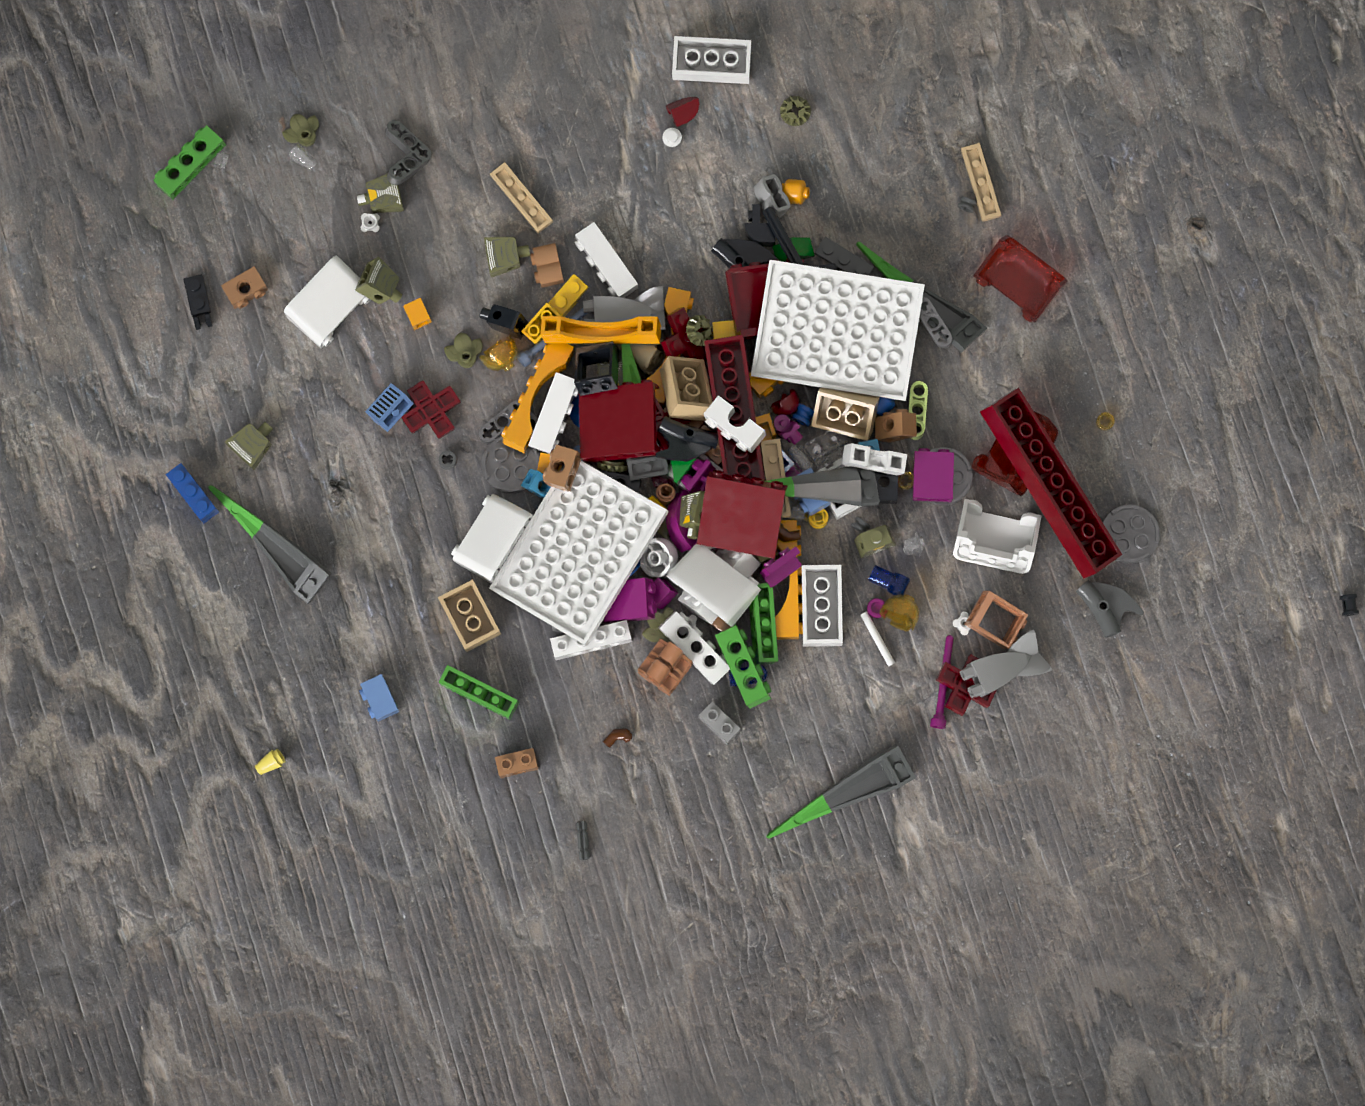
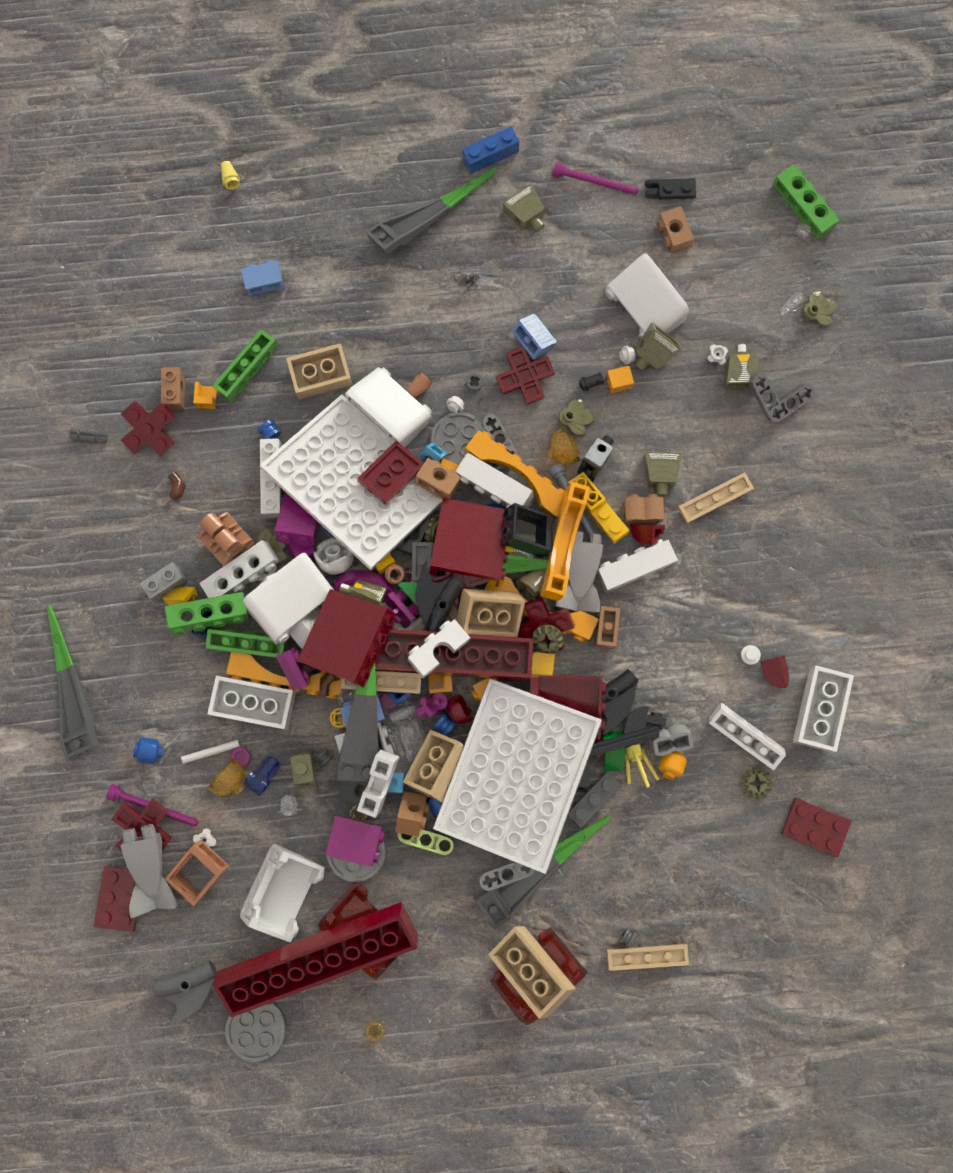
camera: 95 degrees right, 0 degrees up
(200, 416) = (560, 171): none -> magenta piece
(389, 311) = (627, 354): none -> white plate
(424, 342) = (591, 381): none -> black pin
(463, 514) = (419, 385): none -> nougat cone
(476, 473) = (455, 404): none -> white plate
(517, 729) = (204, 396): none -> light orange panel
(541, 654) = (269, 430): none -> blue wheel
(564, 515) = (390, 472): none -> dark red plate
(564, 776) = (148, 428): none -> dark red plate
(570, 258) = (646, 532): none -> dark red brick
(675, 276) = (607, 627): none -> medium nougat brick
(731, 703) = (180, 595): none -> yellow brick
(753, 126) = (747, 736): none -> white brick
(793, 228) = (636, 754): none -> light yellow plant
(825, 48) = (816, 827): none -> dark red plate
(890, 698) = (147, 750): none -> blue head
(1017, 283) = (531, 972): none -> tan brick
(1038, 694) = (115, 899): none -> dark red plate

